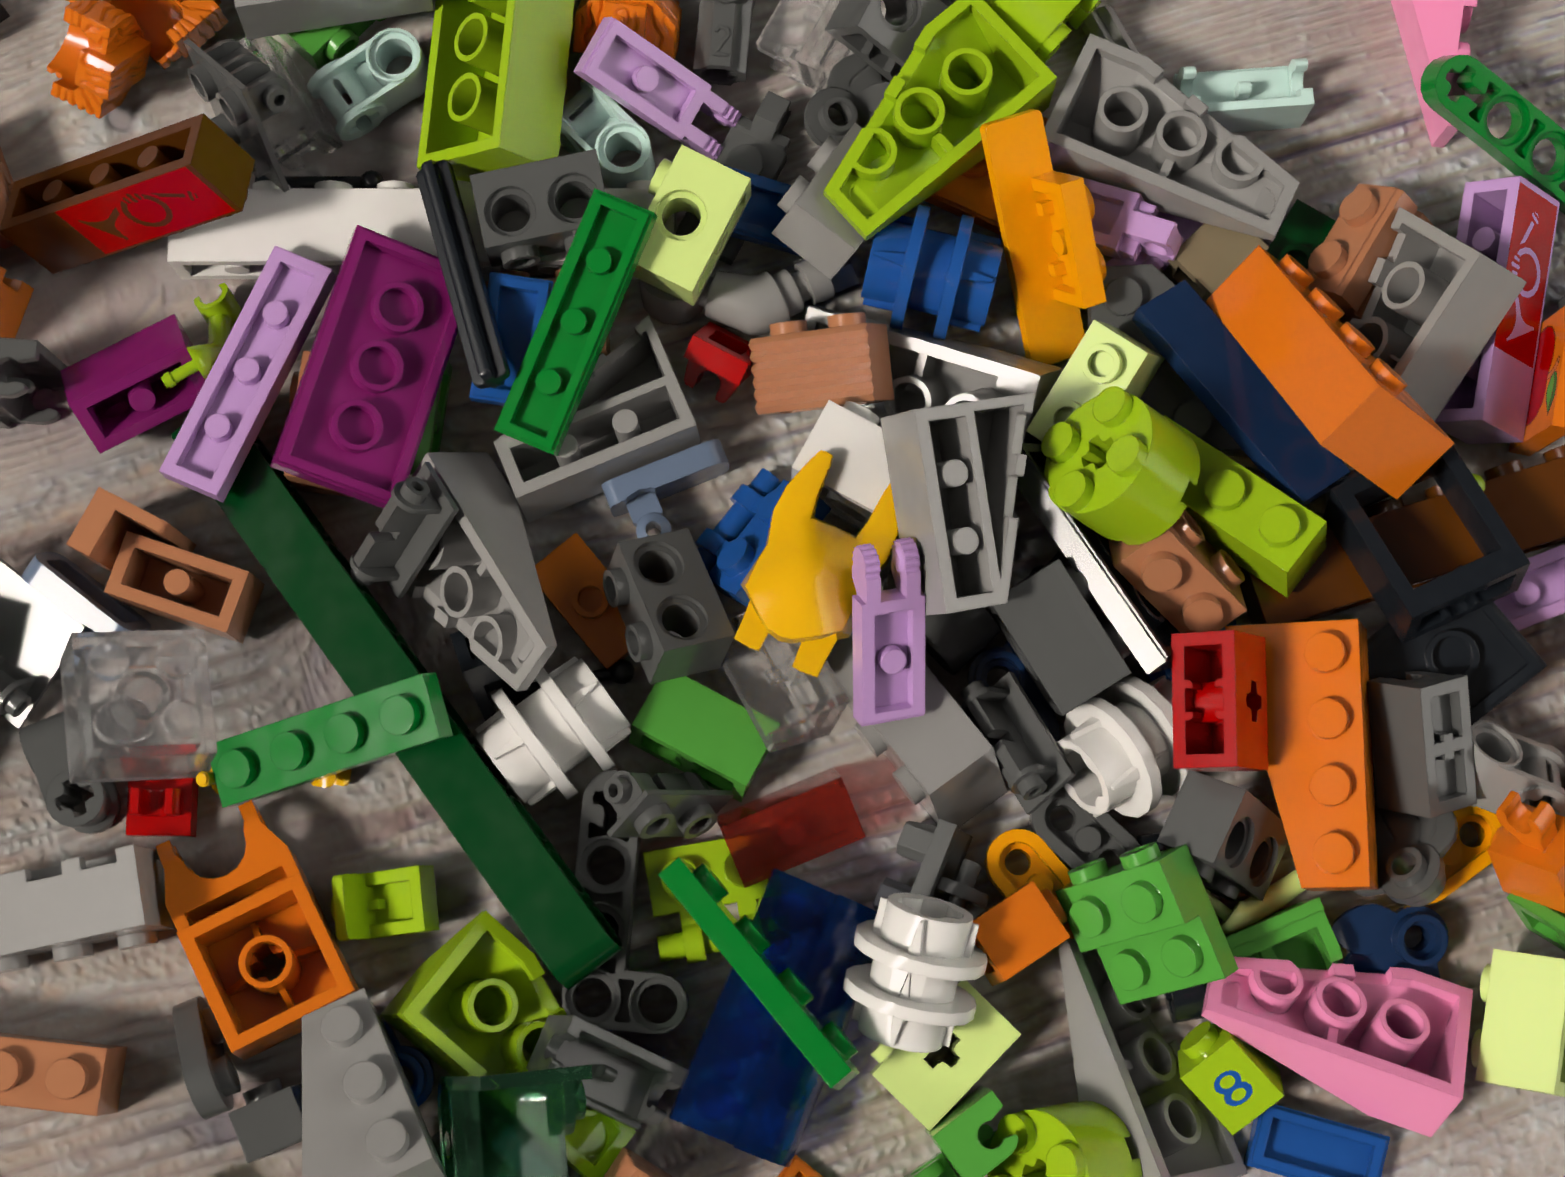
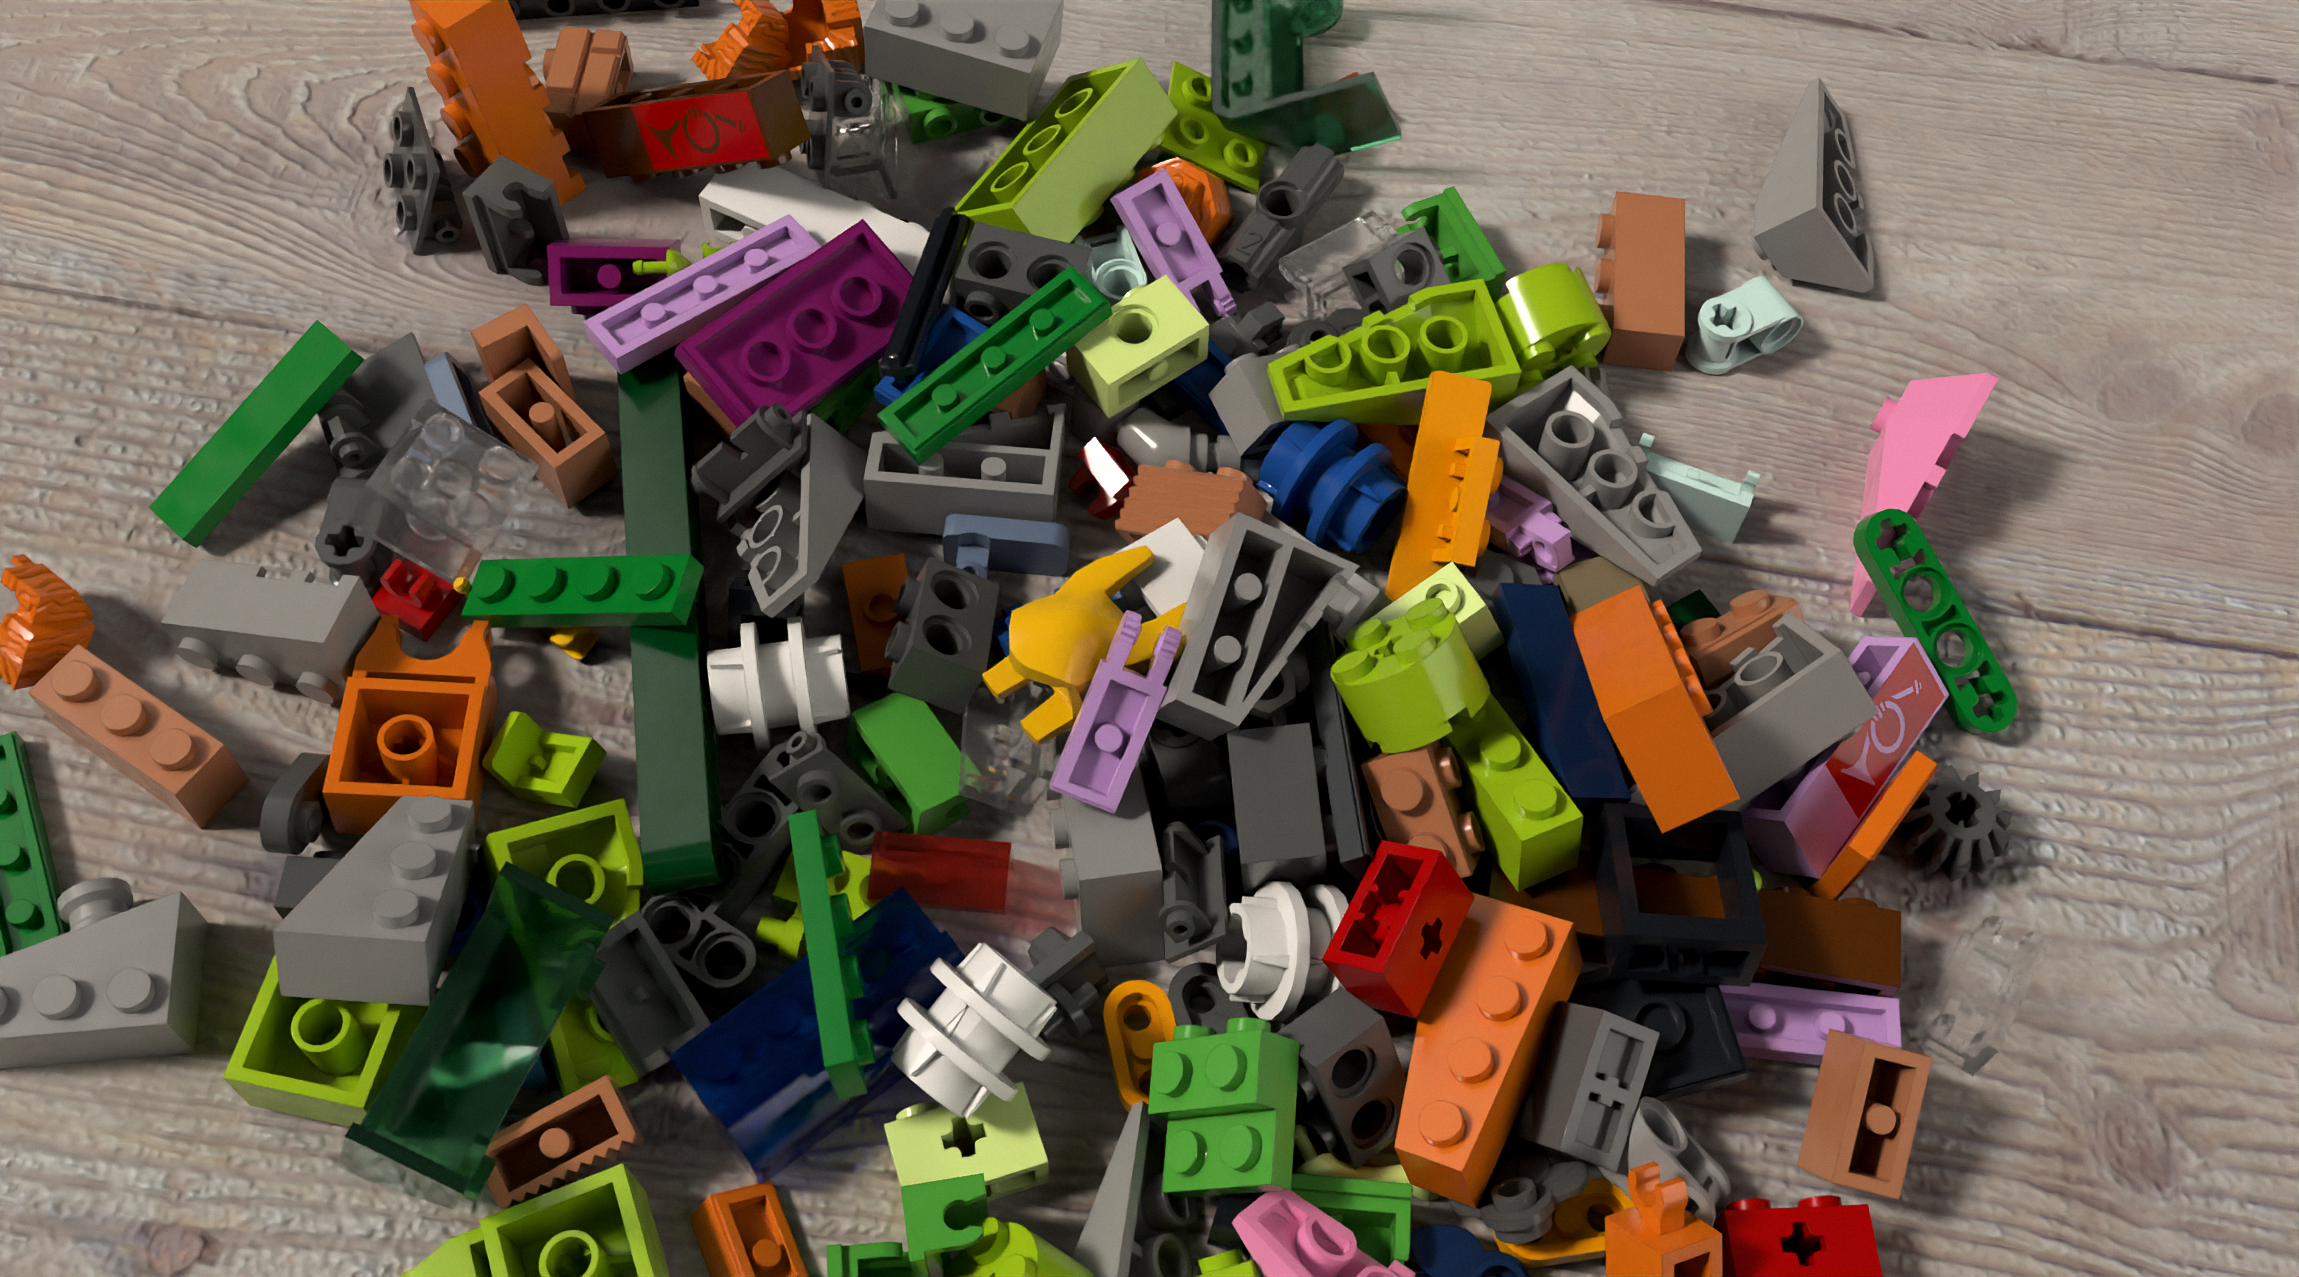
camera: 25 degrees right, 20 degrees down
(365, 80) = (950, 155): light aqua piece -> none
(1019, 931) = (1094, 1058): orange brick -> none

